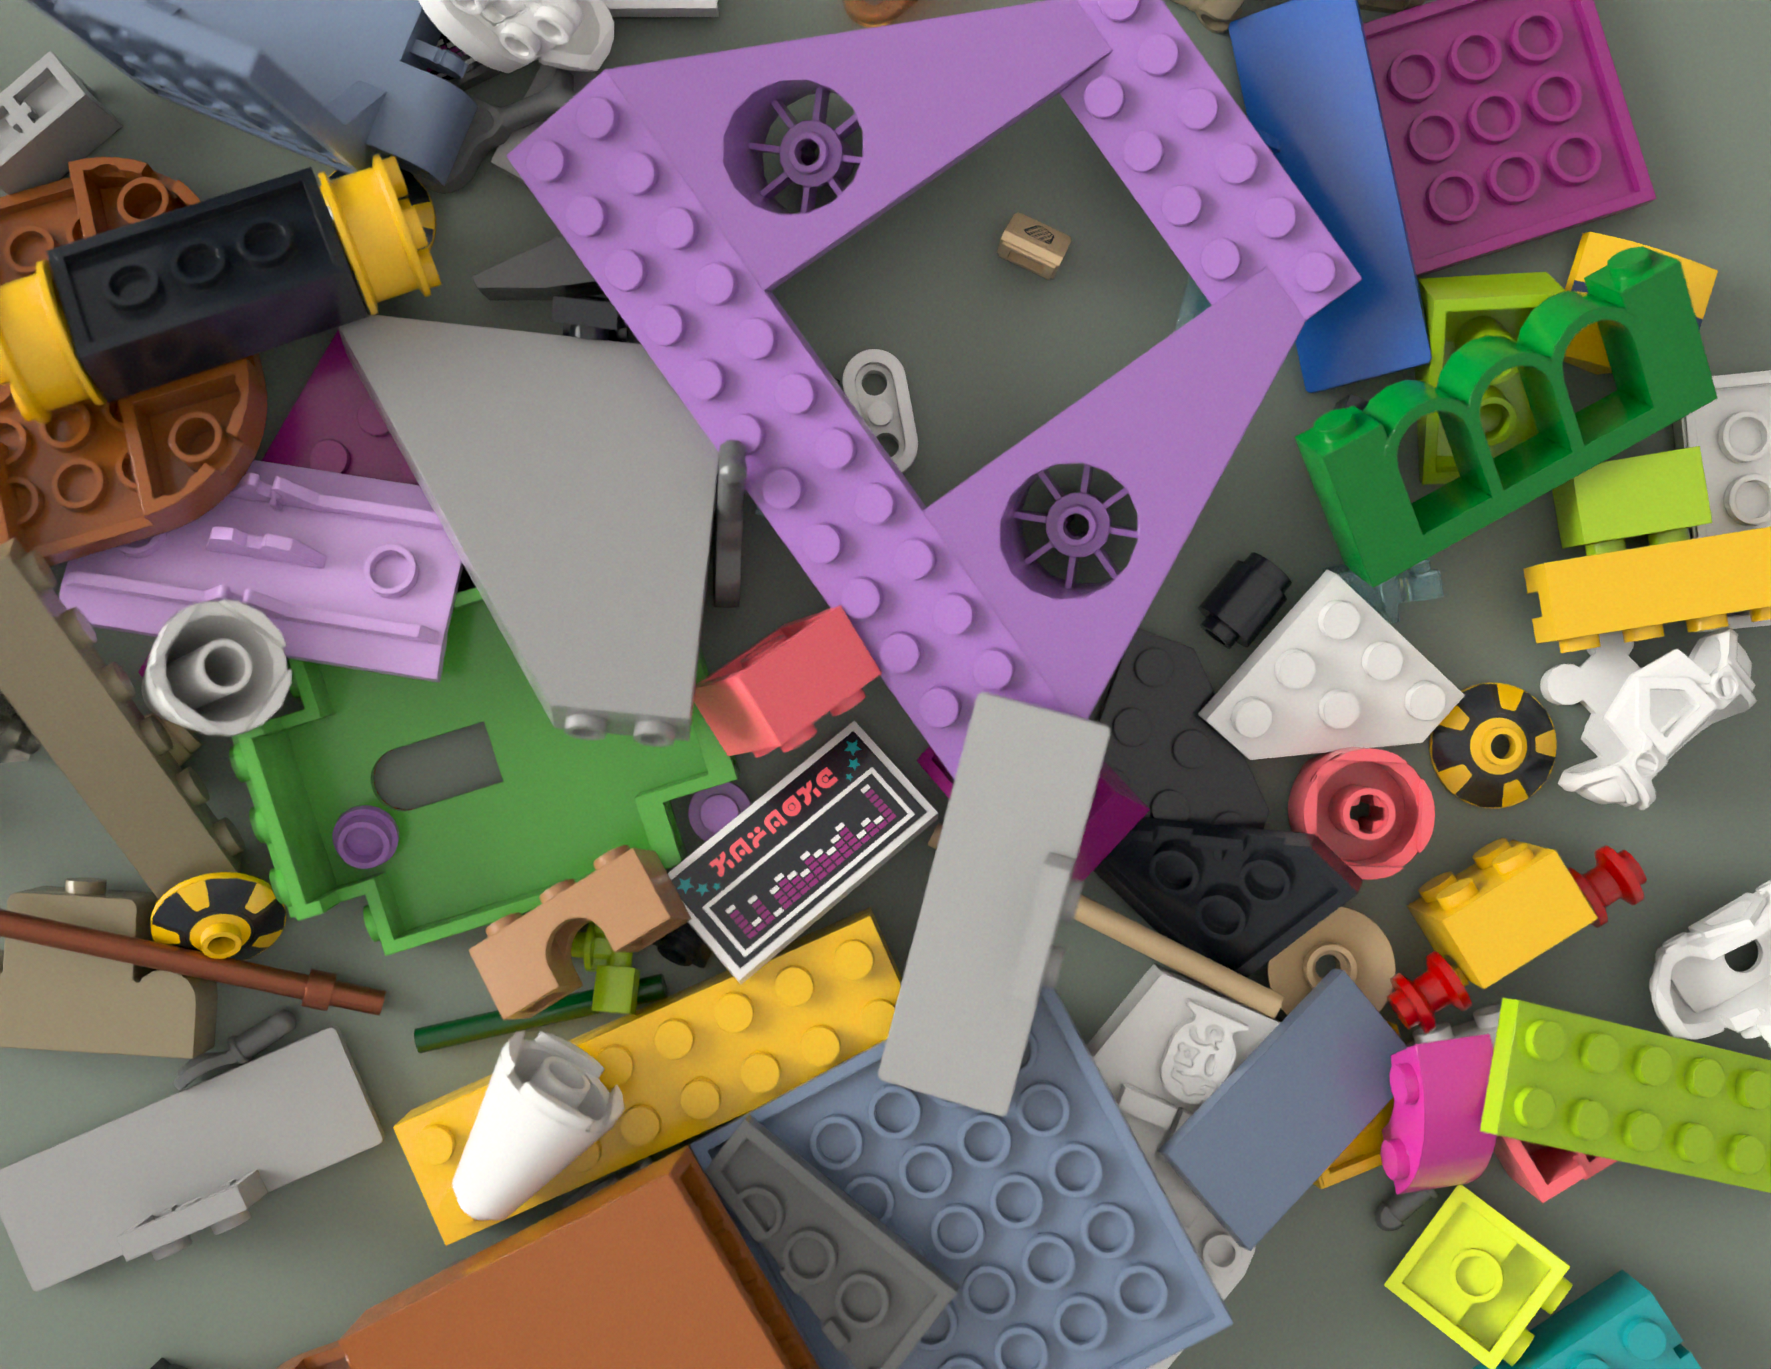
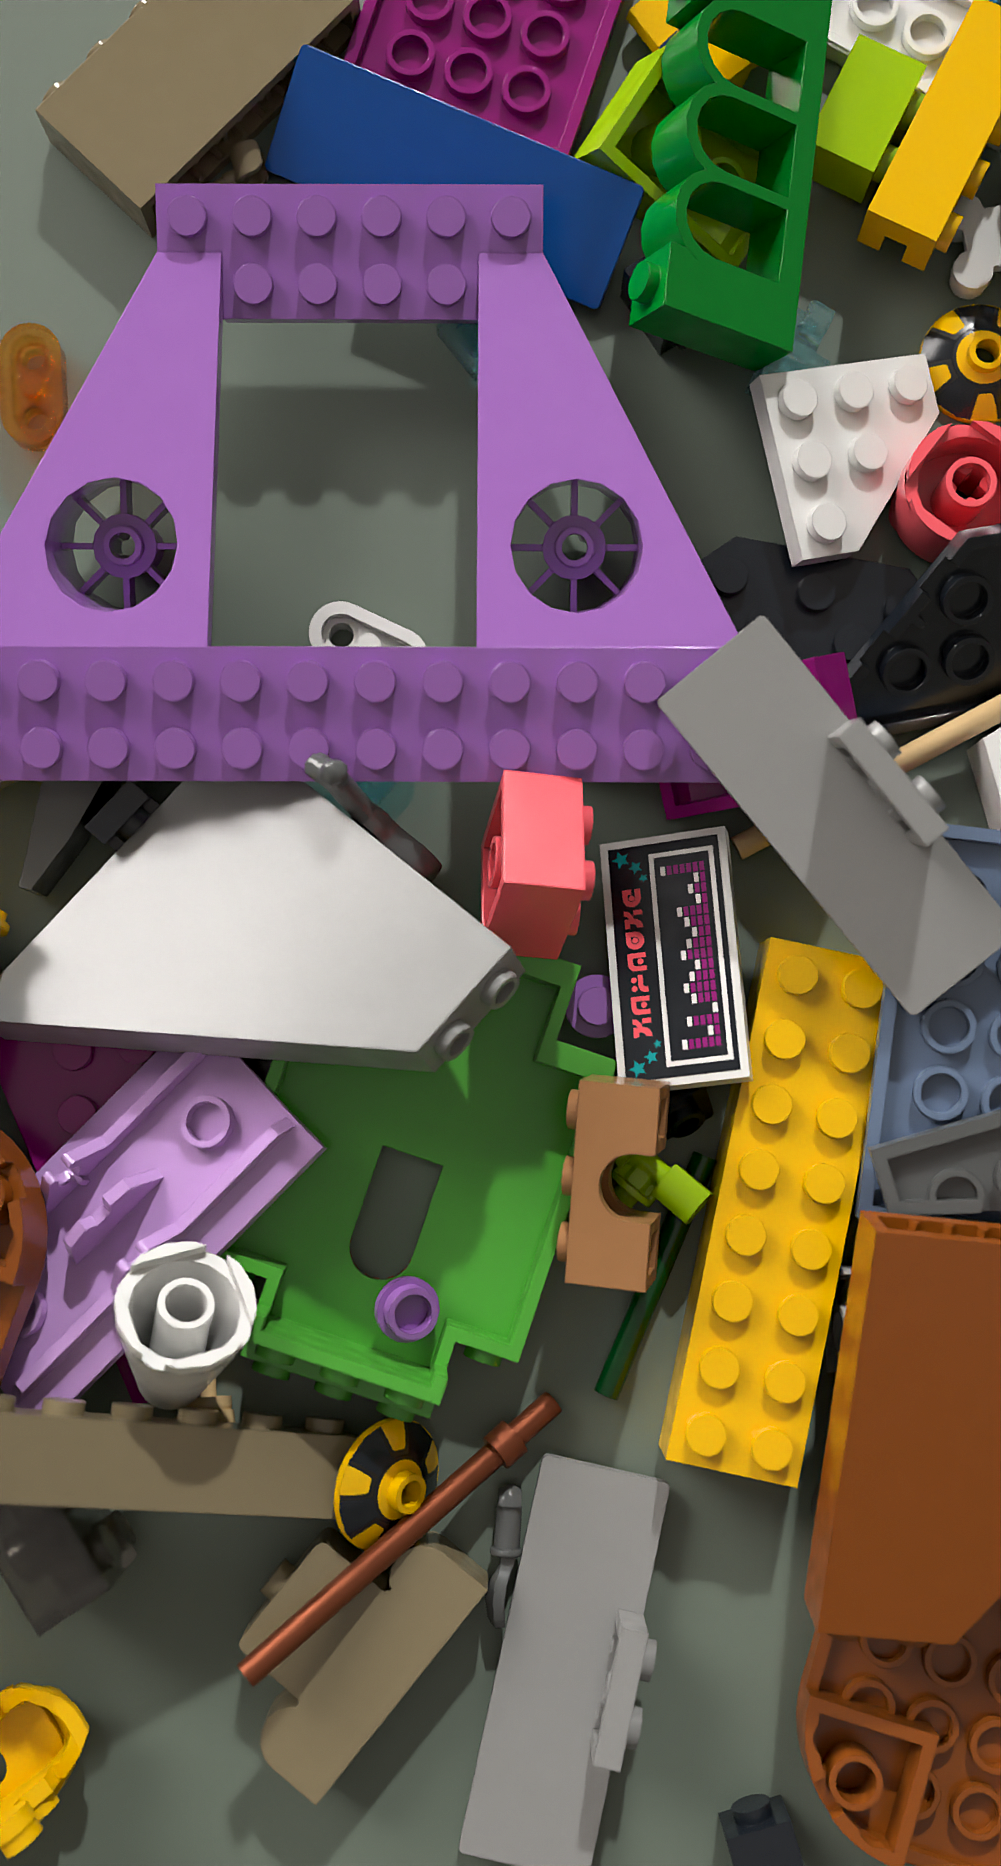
camera: 60 degrees left, 5 degrees down
(532, 1123) = (751, 1332): white cone -> none
(1033, 245) = (327, 437): tan slope -> none
(1244, 601) = (727, 469): black brick -> none

